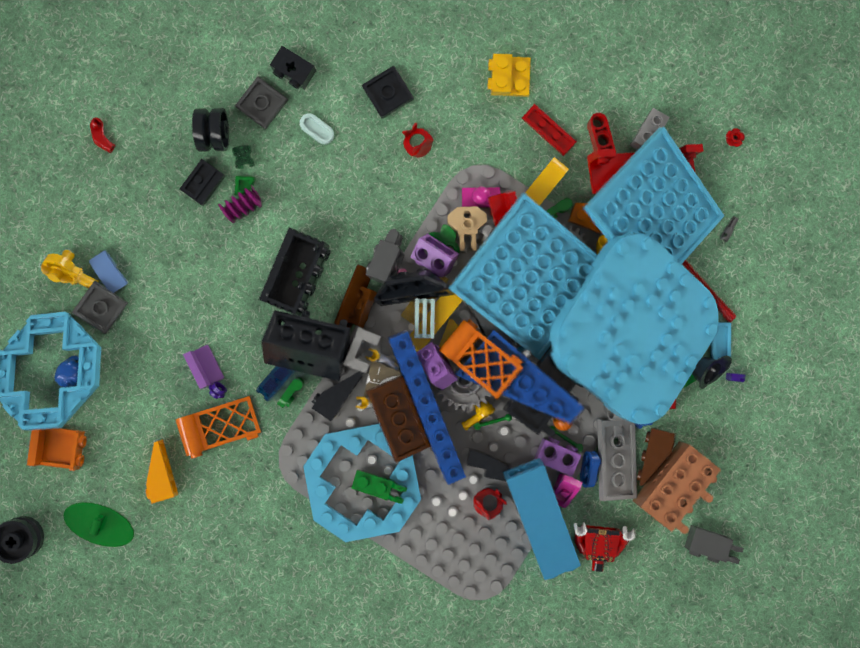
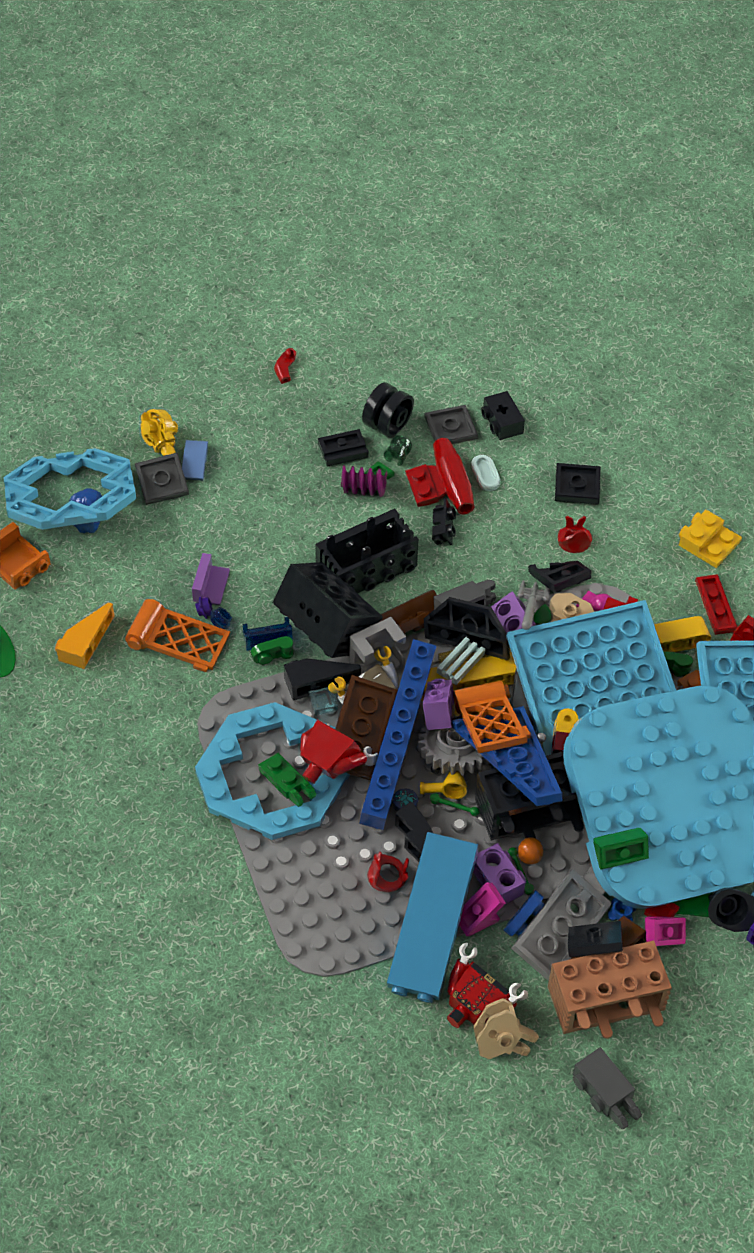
camera: 35 degrees right, 35 degrees down
(235, 391) = (220, 618): none -> clear blue plate
(293, 160) = (447, 477): none -> red plate
(328, 204) = (444, 516): none -> black hinge
(350, 409) = (323, 701): none -> clear light blue tile
(395, 459) = (331, 752): none -> red torso
(431, 224) = (532, 596): none -> light grey piece
(432, 184) = (560, 575): none -> black wing
(461, 443) = (403, 797): none -> tile
(533, 329) = (562, 727): none -> yellow leg
(632, 399) = (621, 848): none -> green slope
(634, 559) = (501, 1031): none -> tan hinge
(651, 466) = (595, 939): none -> black plate
(679, 418) = (665, 930): none -> dark pink slope

